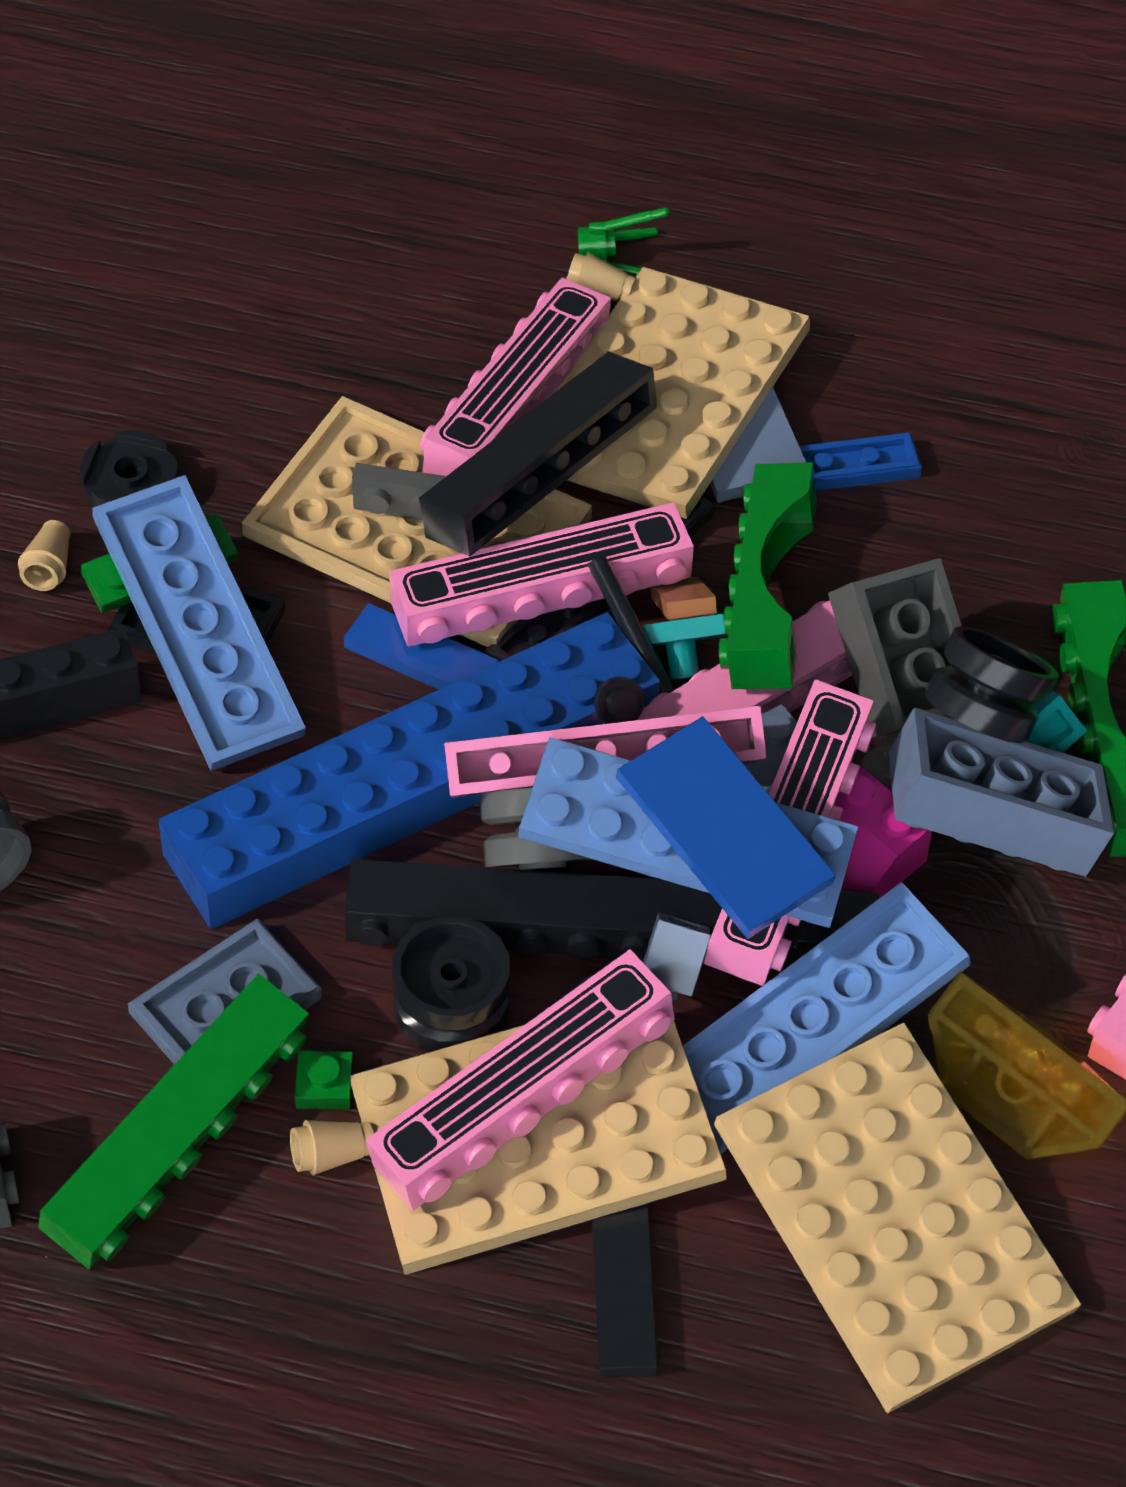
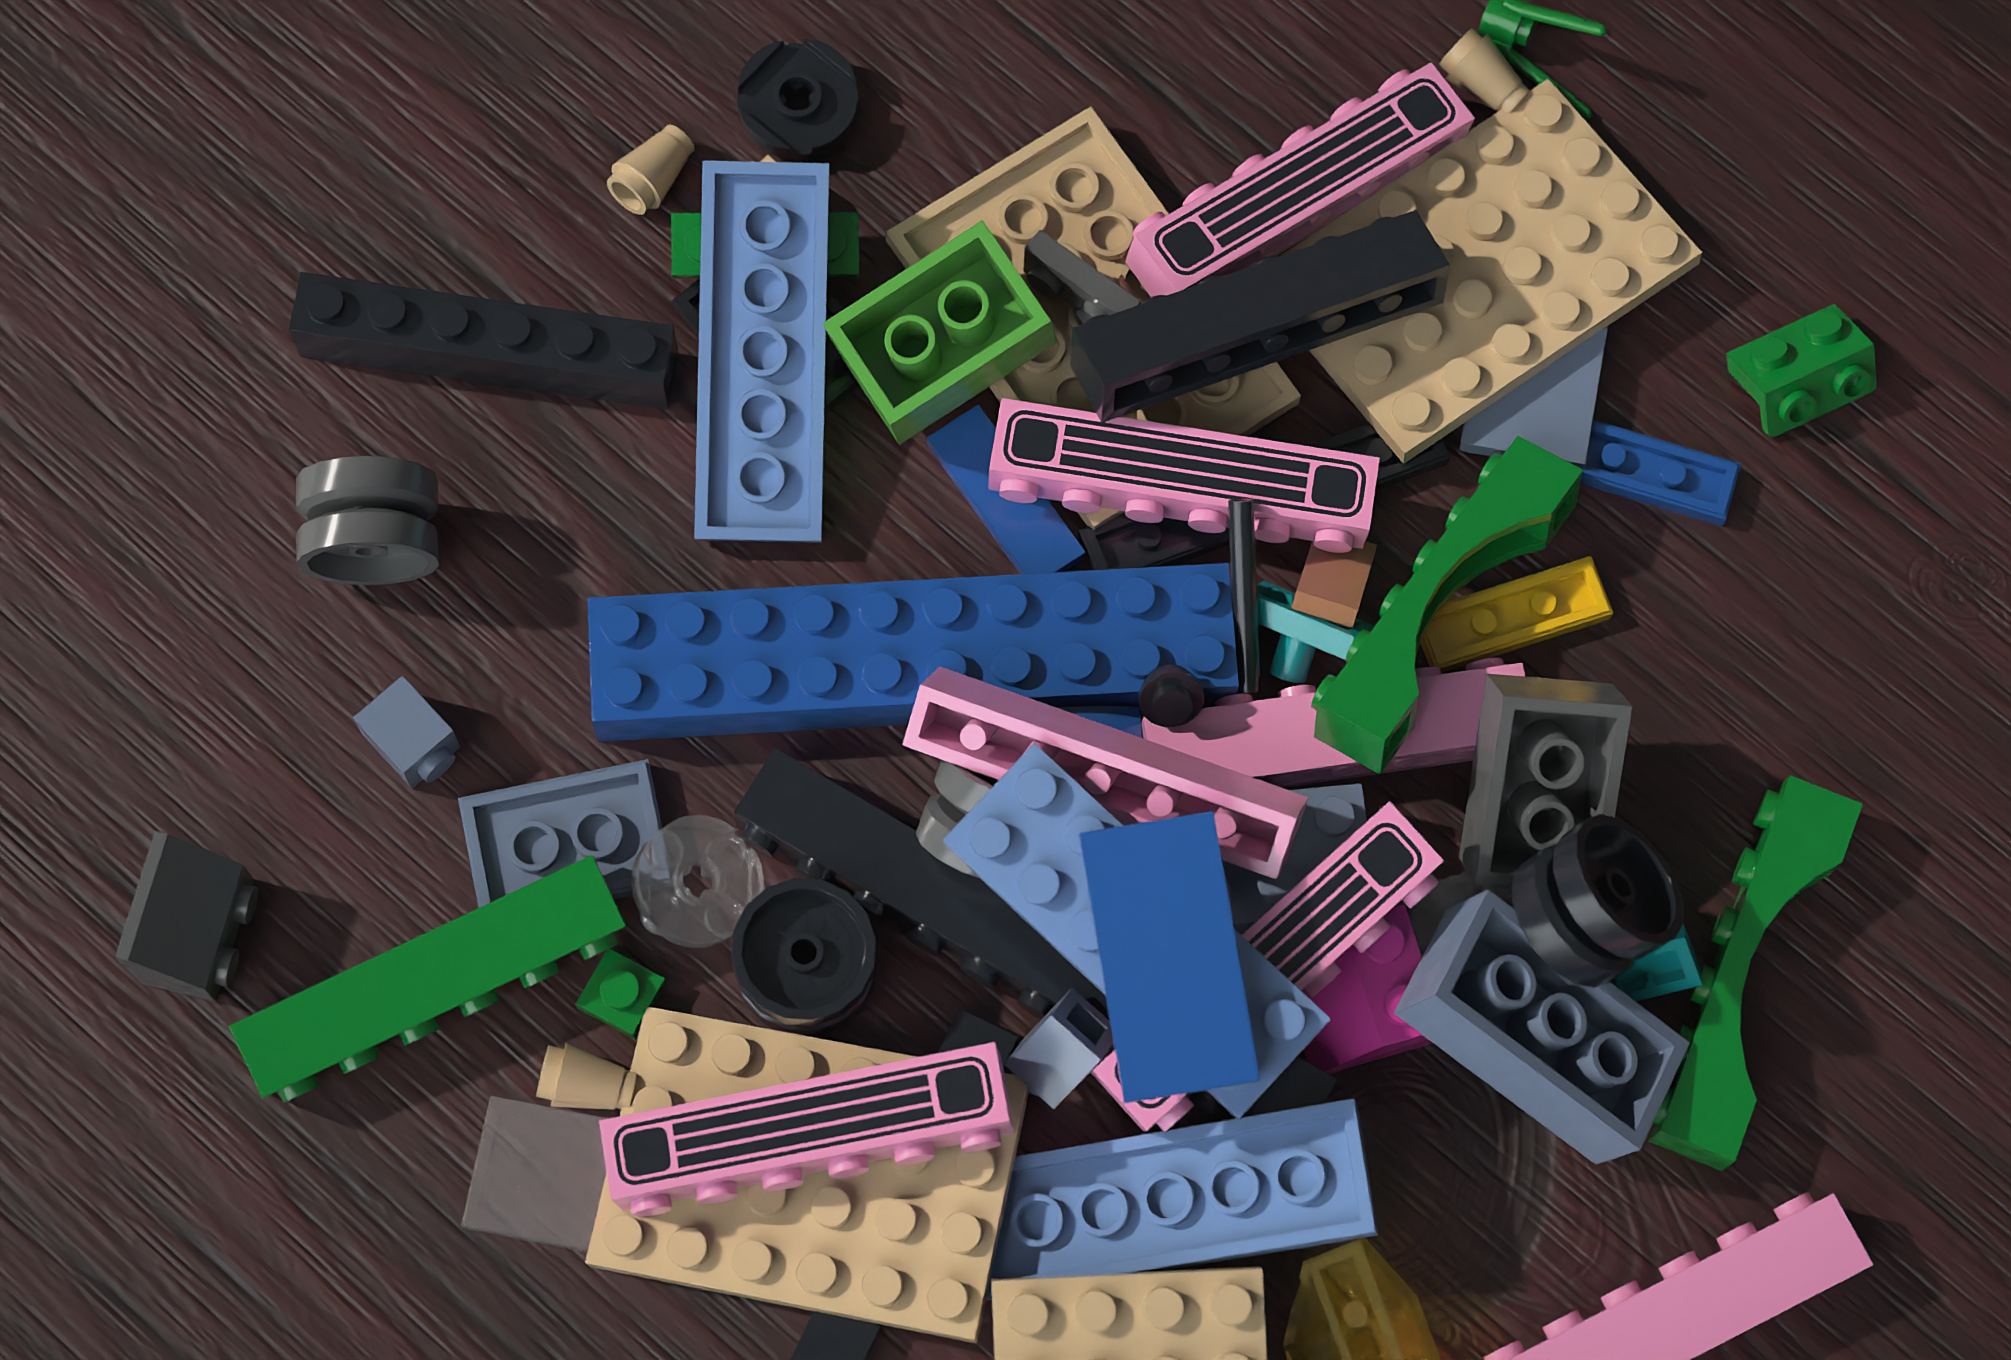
camera: 25 degrees right, 20 degrees up
(66, 974) = (408, 733): none -> sand blue brick
(321, 554) = (941, 332): none -> bright green brick
(329, 996) = (669, 906): none -> clear plate
(332, 1226) = (537, 1174): none -> clear tile
(831, 565) = (1516, 615): none -> yellow tile
(918, 362) = (1805, 369): none -> green bracket

